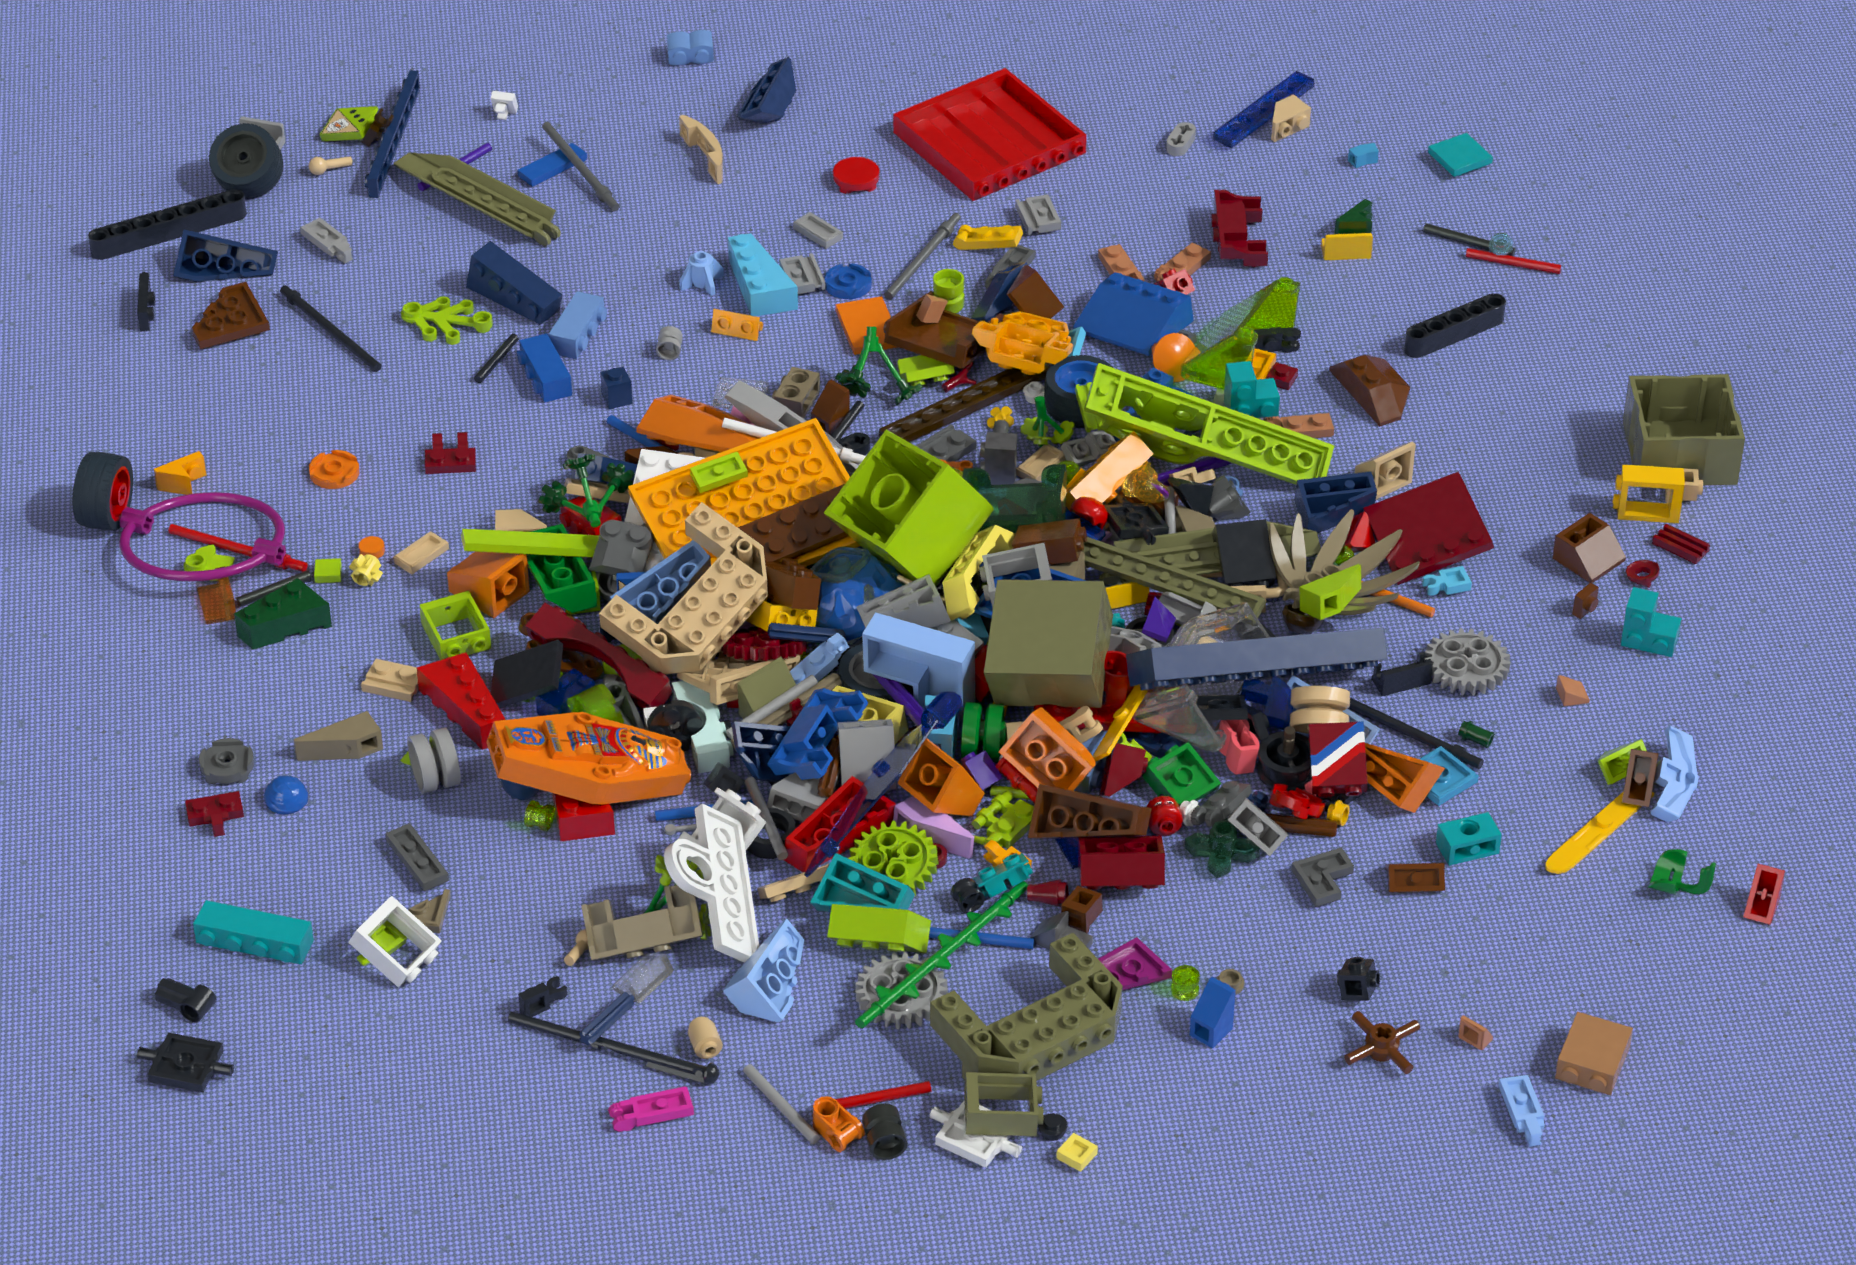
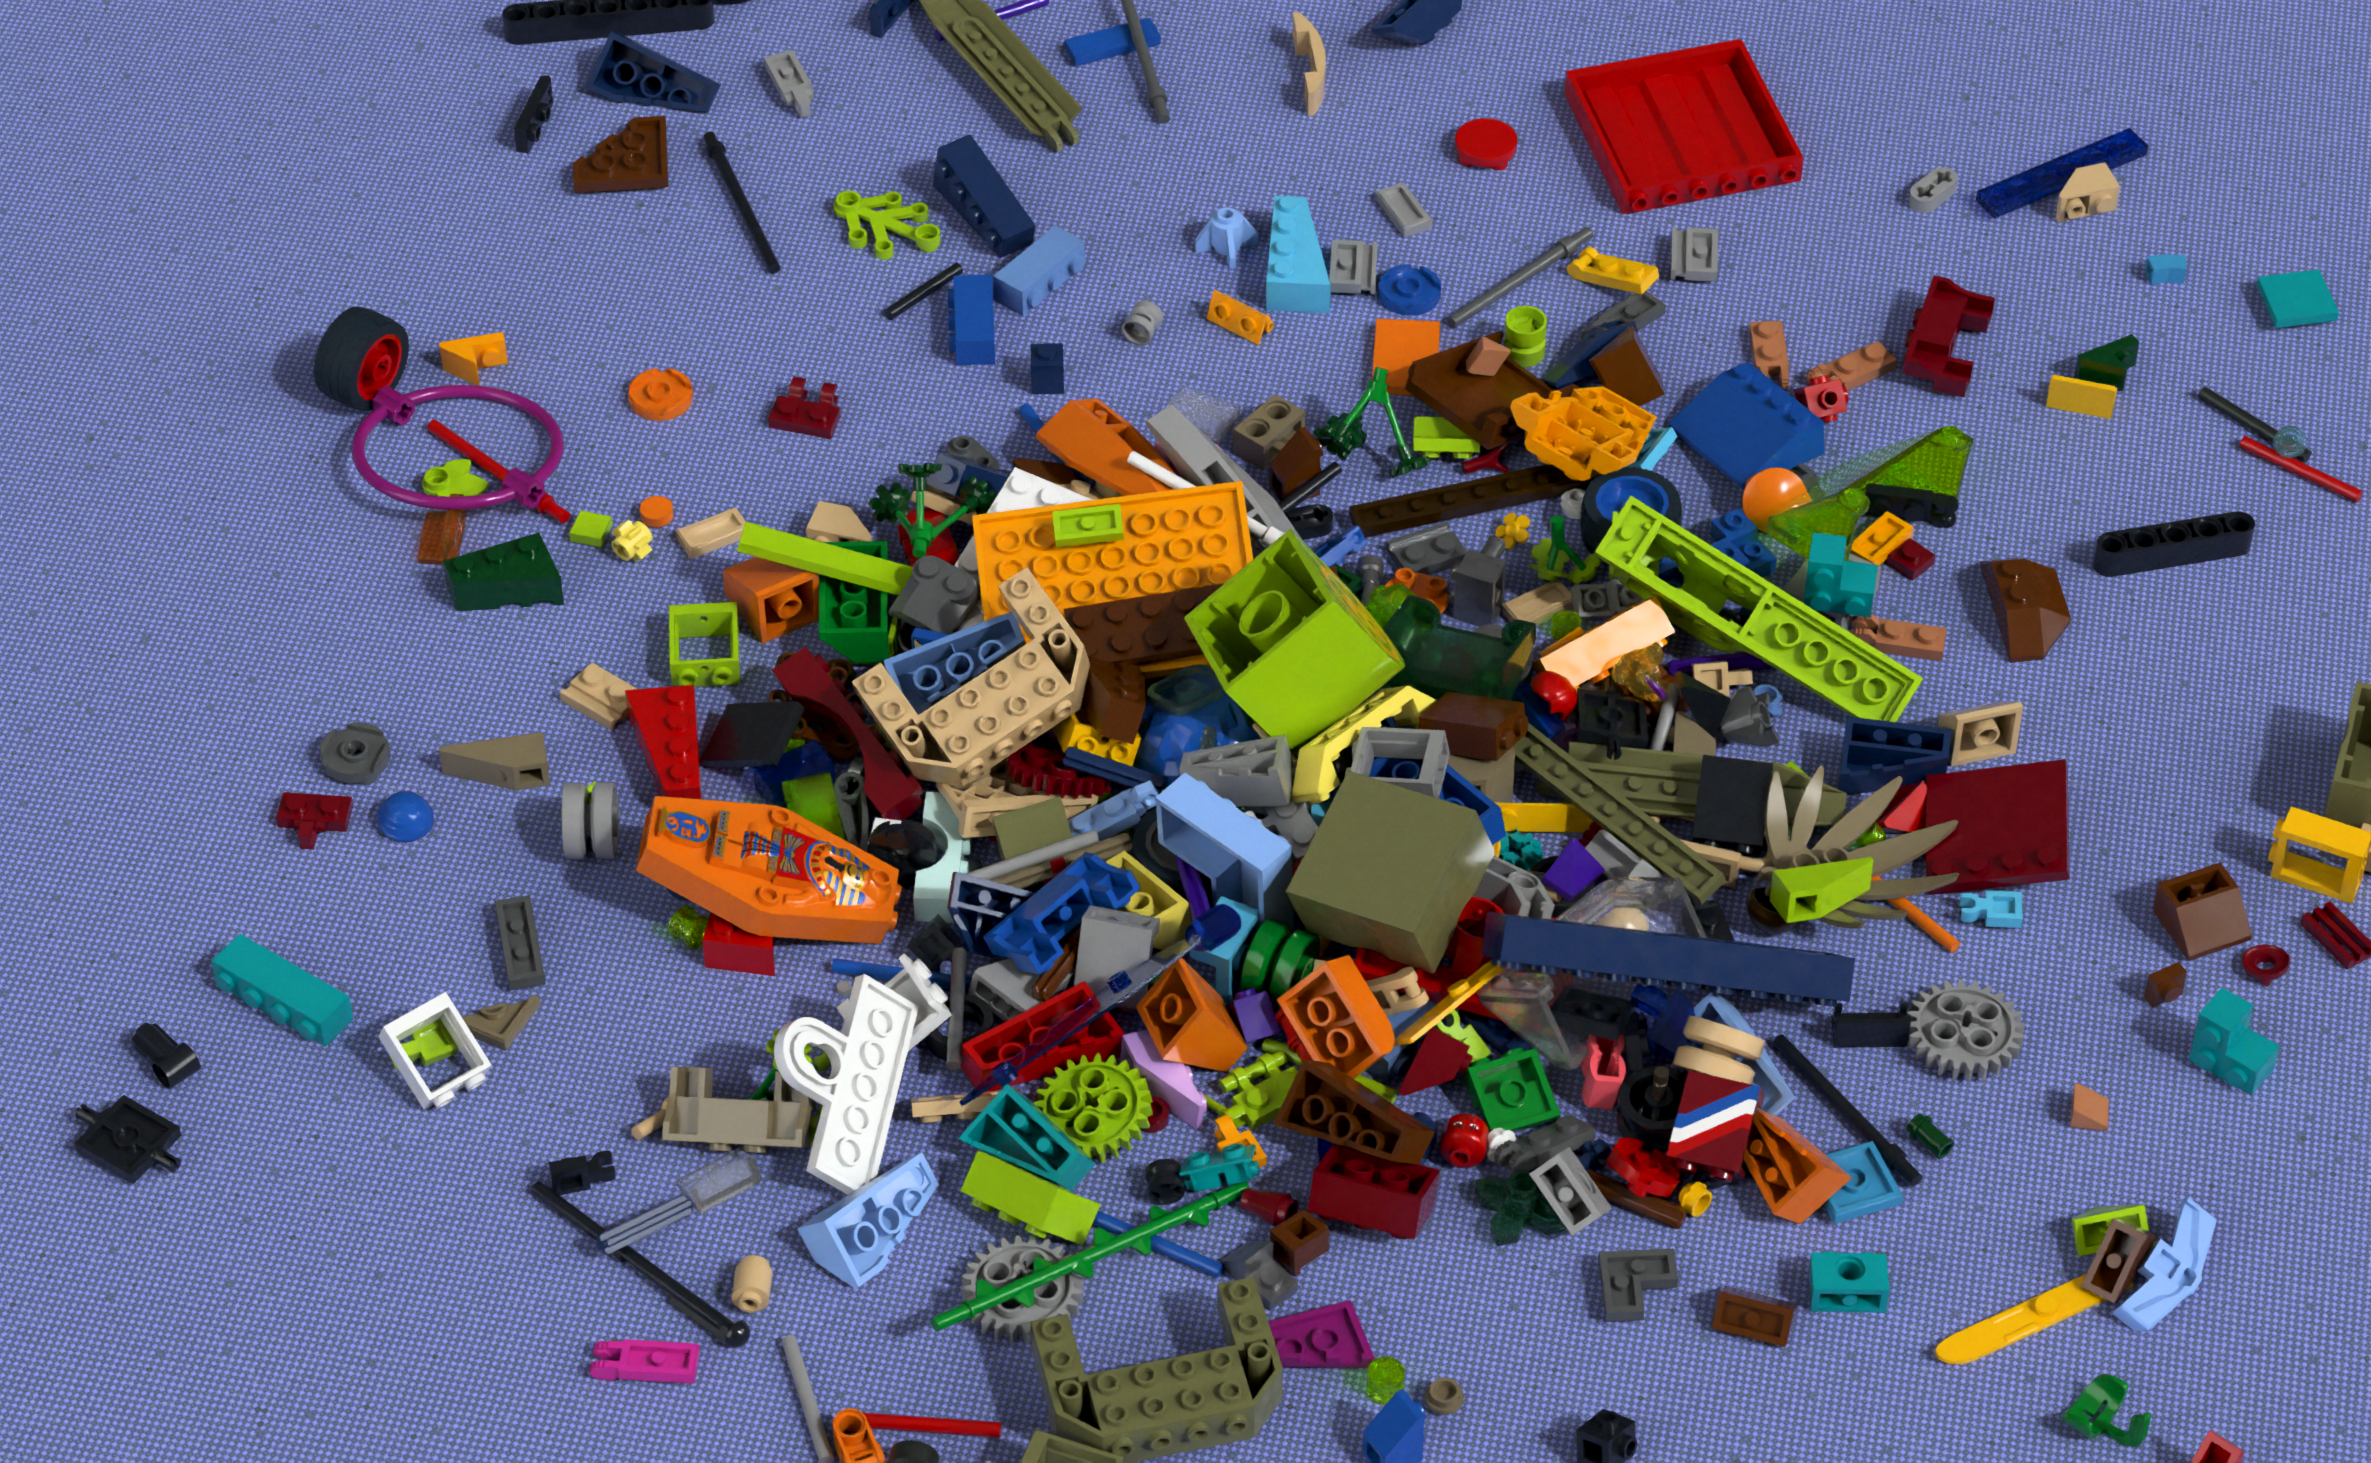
camera: 20 degrees right, 5 degrees up
(260, 593) = (493, 539): pearl dark grey bar -> none

